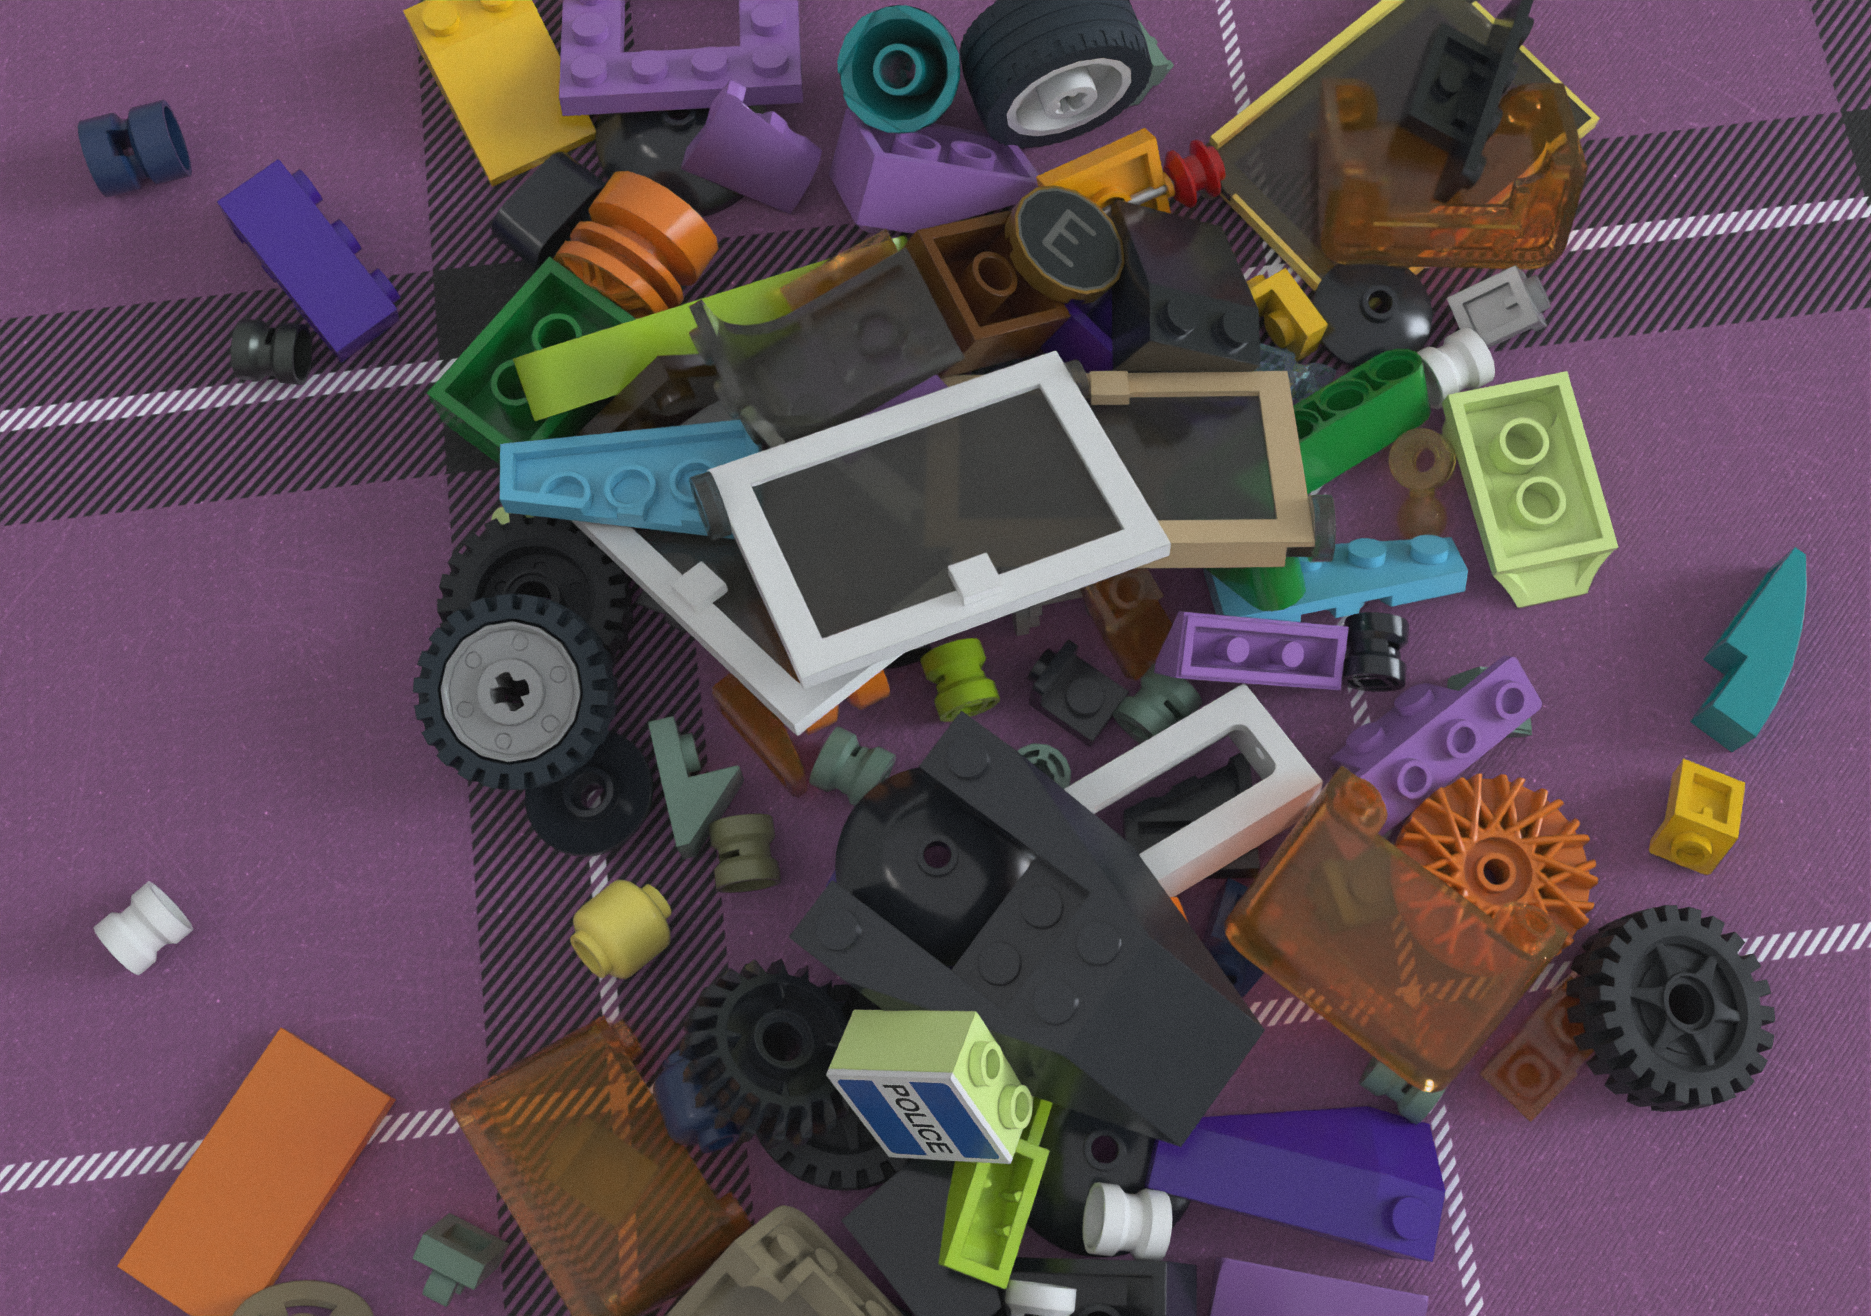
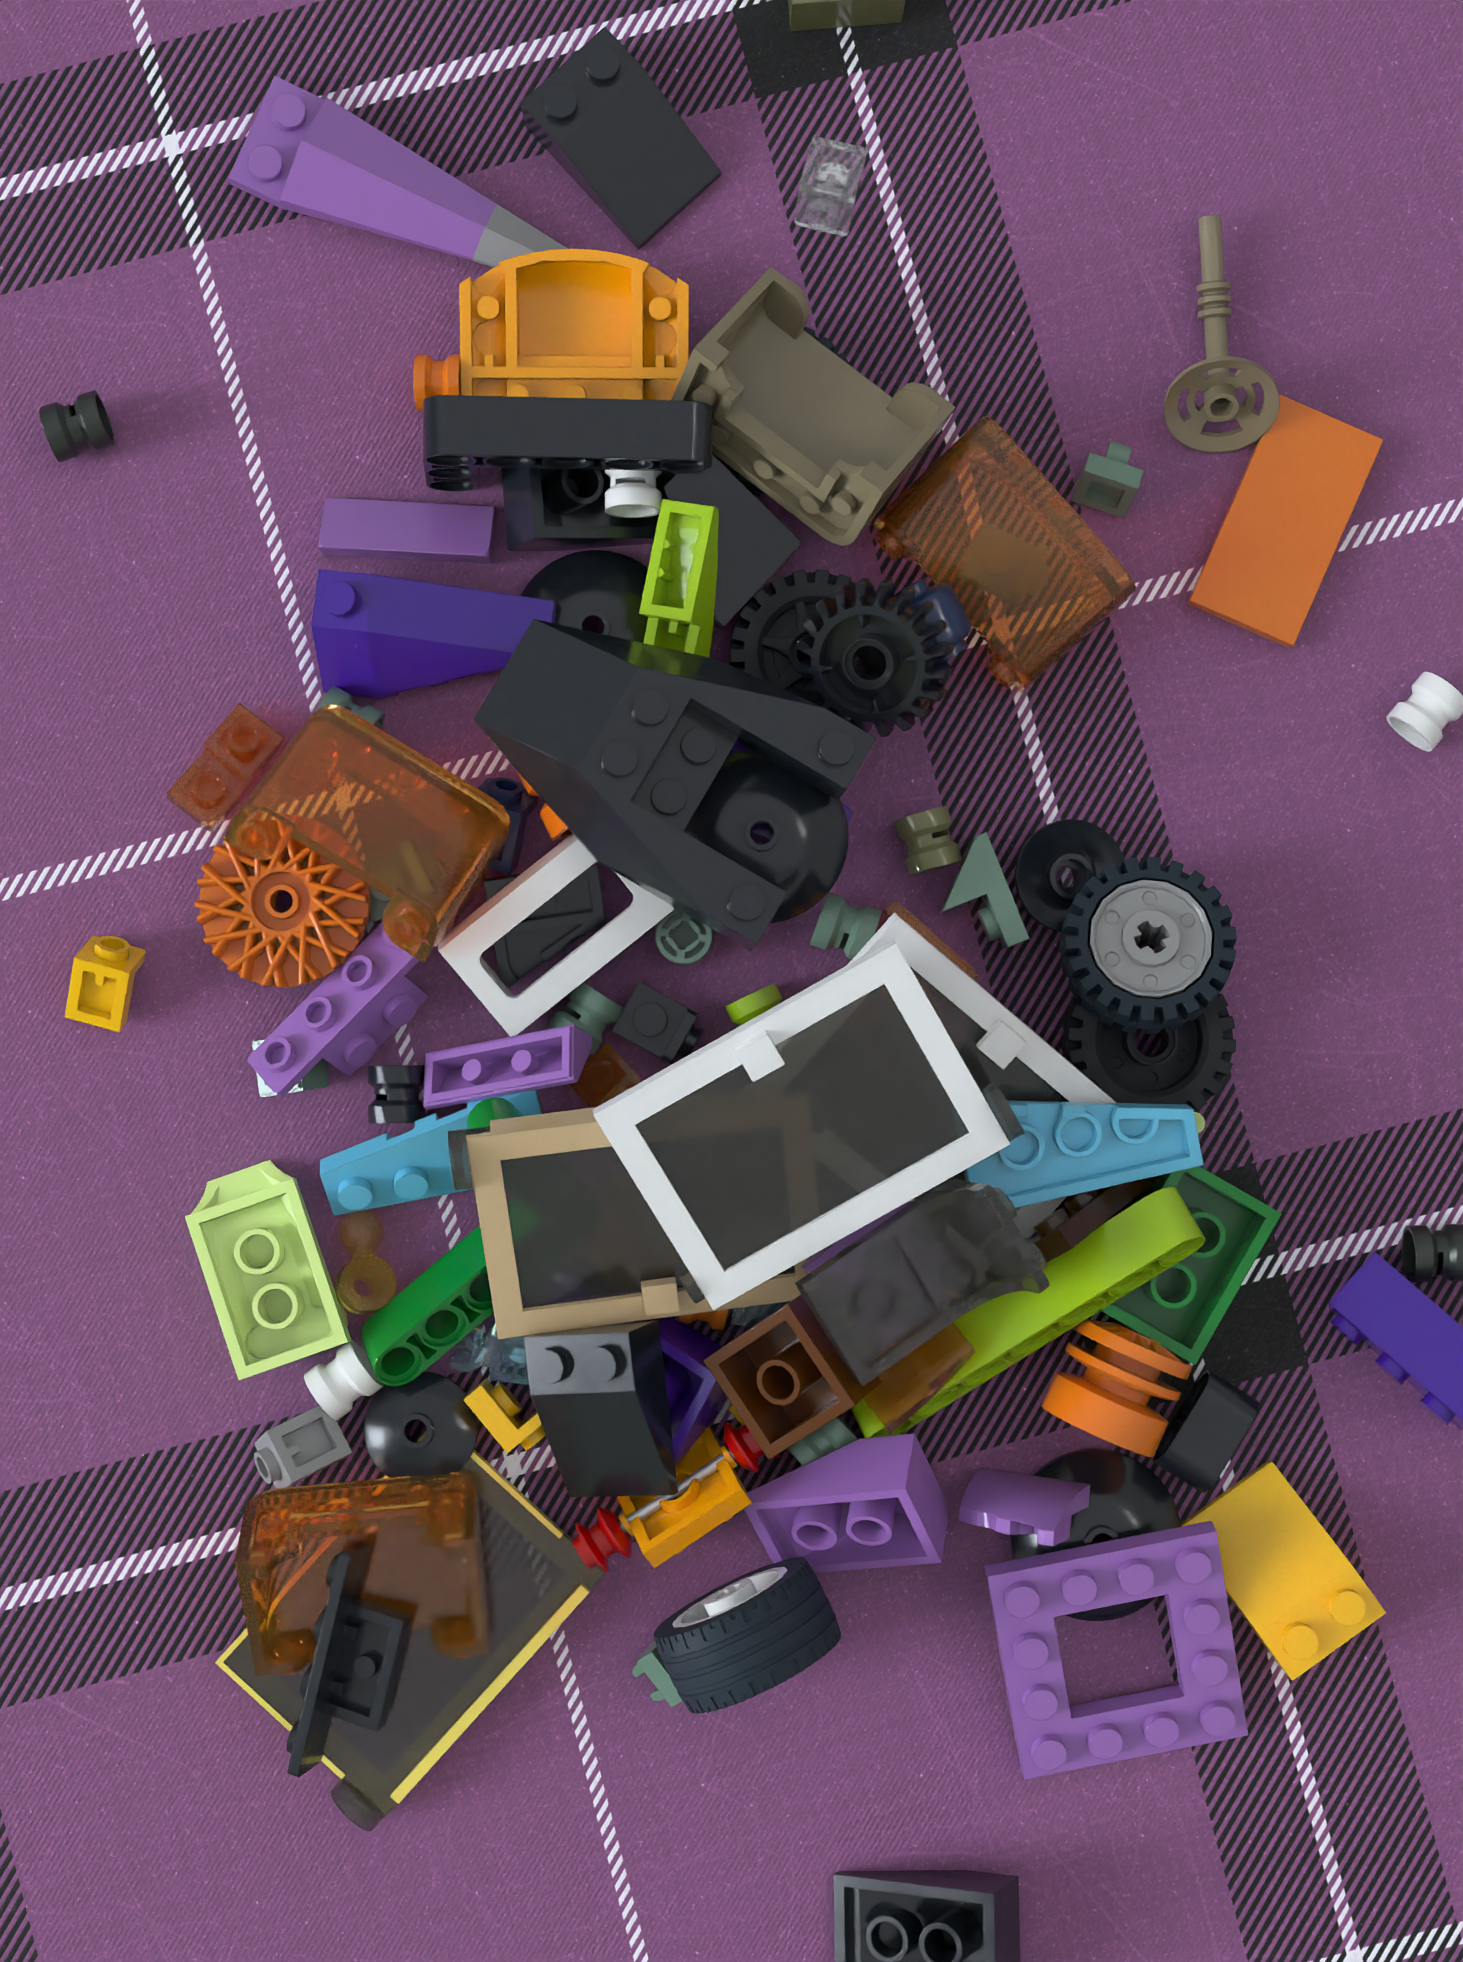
camera: 175 degrees right, 15 degrees up
(621, 929) = (1022, 762): light yellow head -> none
(880, 66) = (893, 1592): teal cone -> none
(931, 1085) = (742, 640): piece -> none
(1064, 244) = (716, 1429): tile -> none
(1127, 1222) = (569, 569): white wheel -> none
(1661, 1056) = (90, 798): black wheel -> none
(1755, 655) = (56, 1137): teal slope -> none

